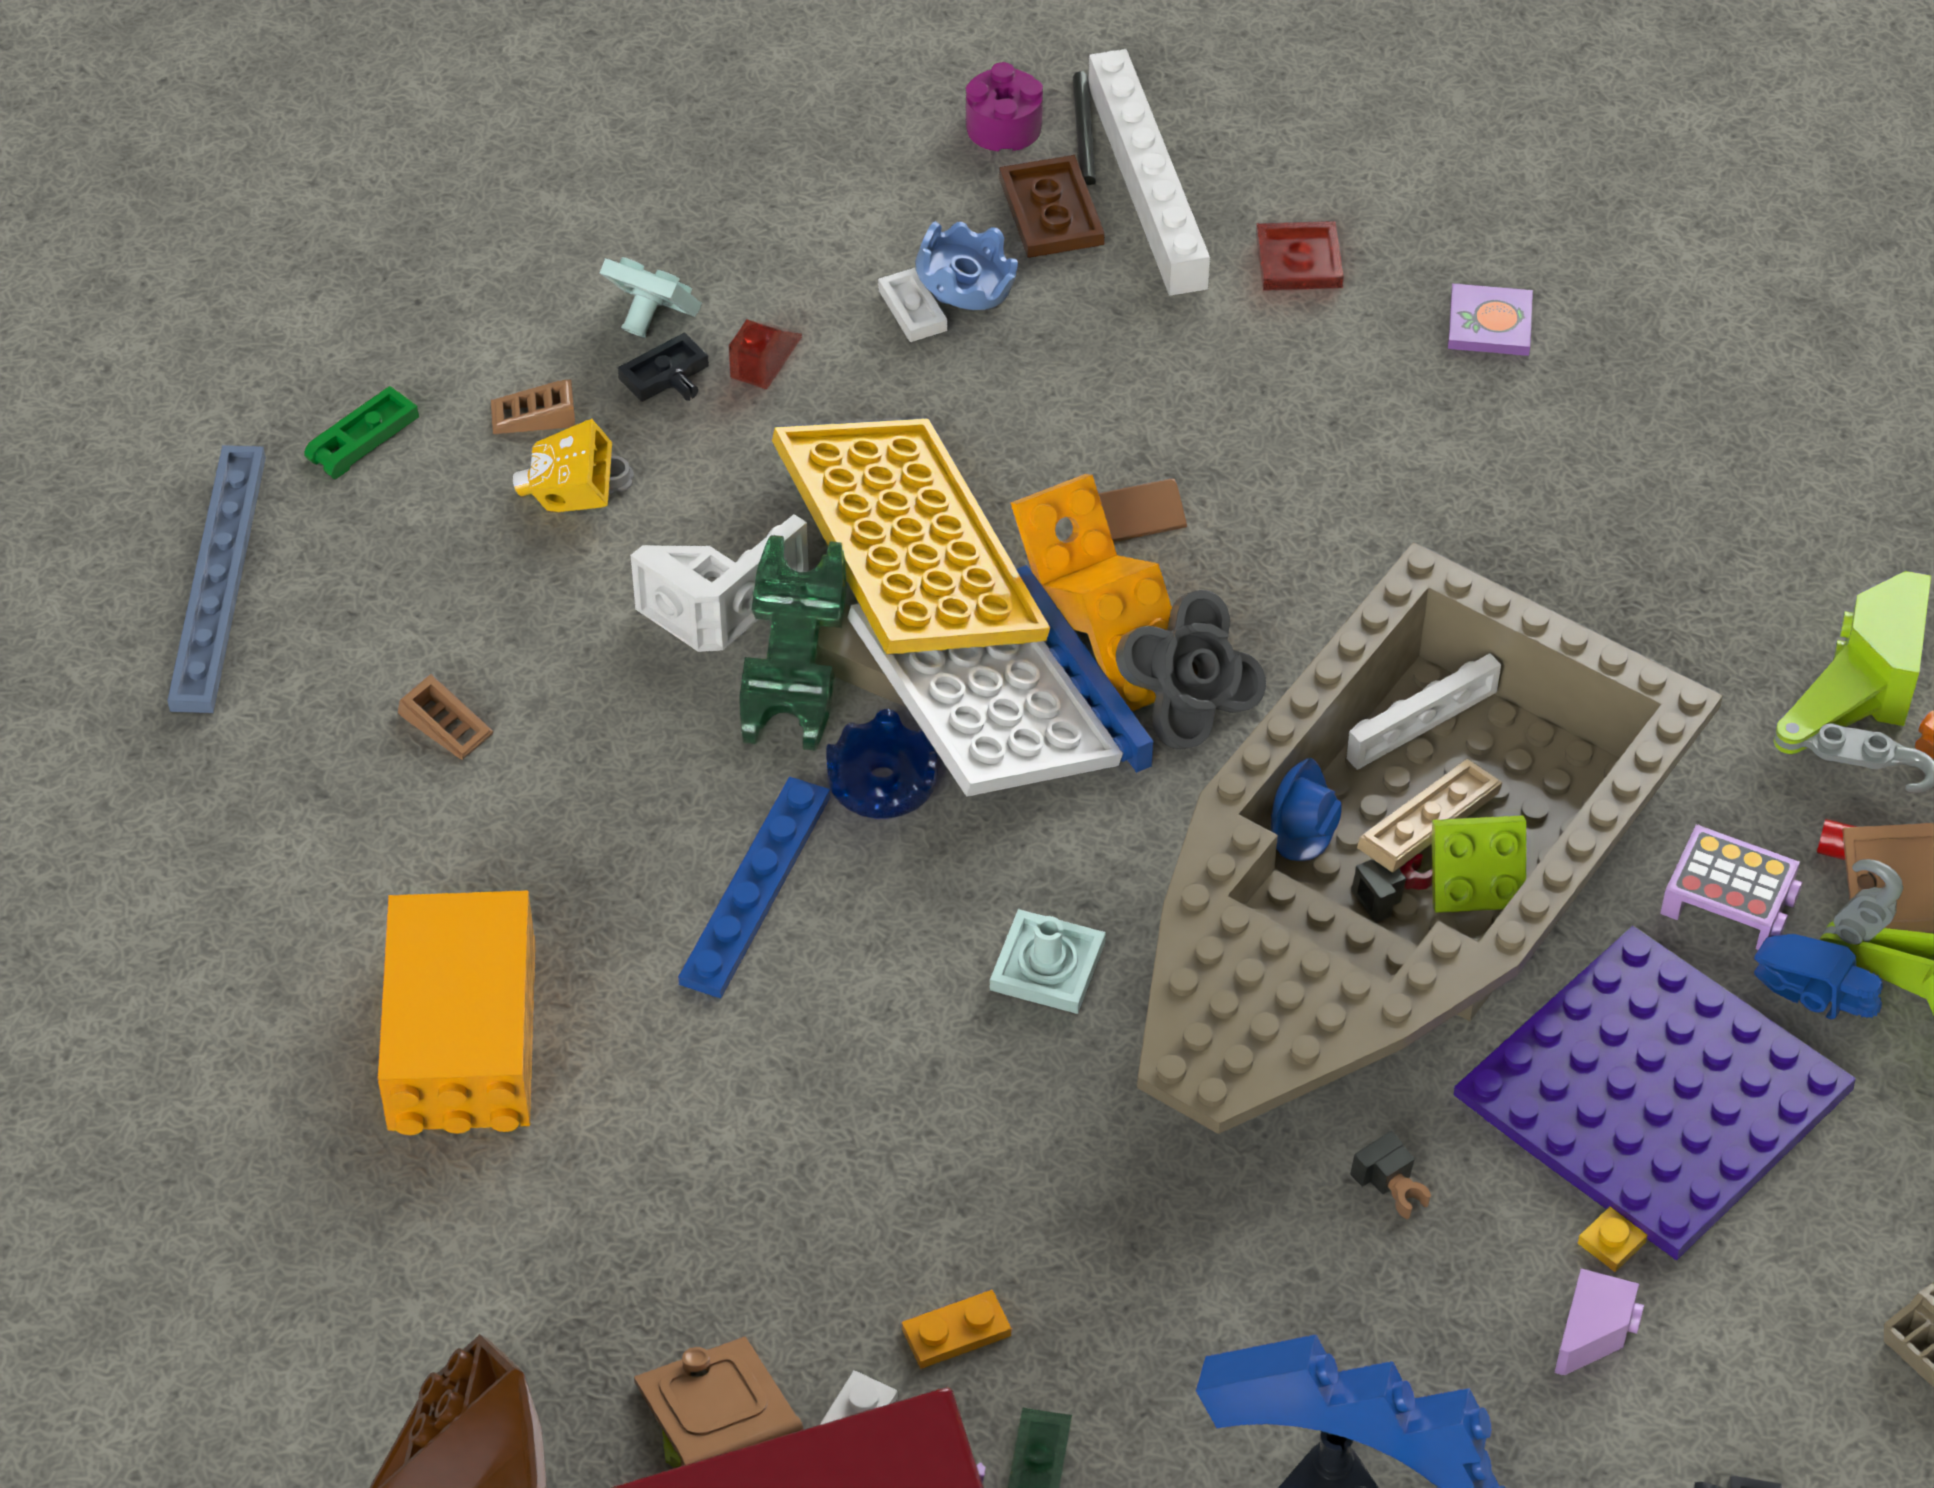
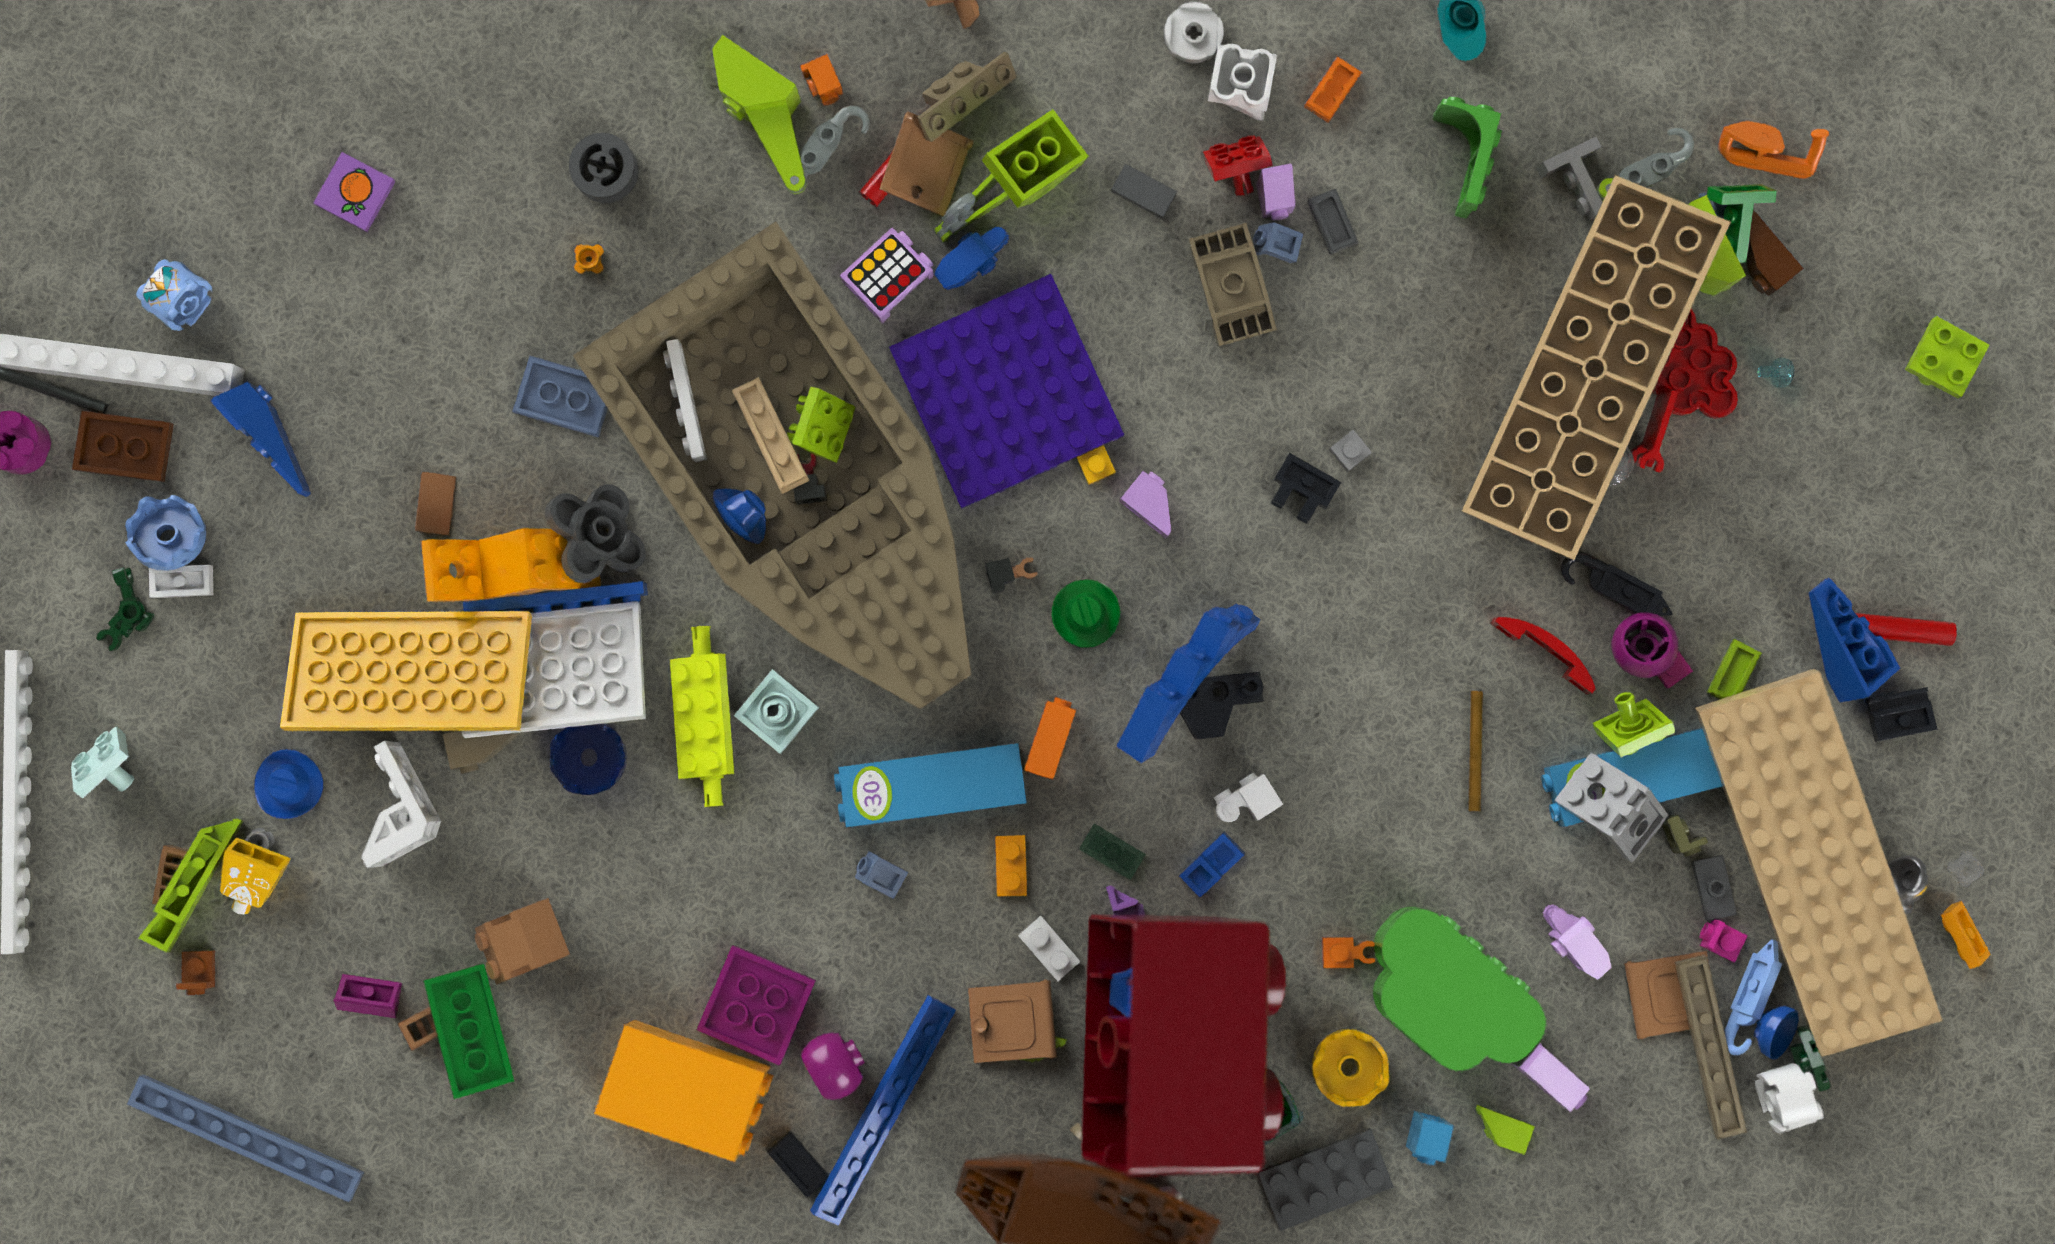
camera: 70 degrees left, 35 degrees up
(361, 431) = (148, 1002): green plate -> none
(396, 1203) = (798, 1164): none -> black tile
(419, 467) = (197, 972): none -> dark orange bracket
(448, 754) = (468, 1031): none -> green plate
(454, 644) = (368, 996): none -> magenta slope
(518, 1277) = (882, 1110): none -> blue plate
(522, 415) = (189, 884): none -> lime wedge
(561, 1180) = (833, 1065): none -> magenta wheel
(563, 237) = (15, 813): none -> white plate
(597, 771) = (521, 941): none -> medium nougat piece
(614, 1072) = (756, 1004): none -> magenta plate
(665, 368) = (173, 774): black plate -> none
(702, 481) = (288, 784): none -> blue hat
(754, 887) = (645, 868): blue plate -> none
(760, 352) = (183, 700): clear red slope -> none
(789, 676) = (454, 771): clear green piece -> none
(851, 273) = (129, 614): none -> dark green piece
(869, 1161) = (880, 874): none -> sand blue bracket
(996, 875) = (702, 716): none -> neon yellow plate
(1033, 1182) = (930, 785): none -> dark azure brick
(1144, 316) = (251, 412): none -> blue wedge
(1173, 1295) = (1050, 738): none -> orange window
(1262, 186) = (174, 294): none -> light blue brick
(1299, 255) = (243, 295): clear red plate -> none
(1340, 582) = (560, 397): none -> sand blue tile
(1382, 1297) = (1085, 613): none -> green hat
(1550, 557) = (585, 251): none -> light orange plate
(1656, 546) = (609, 146): none -> dark grey wheel

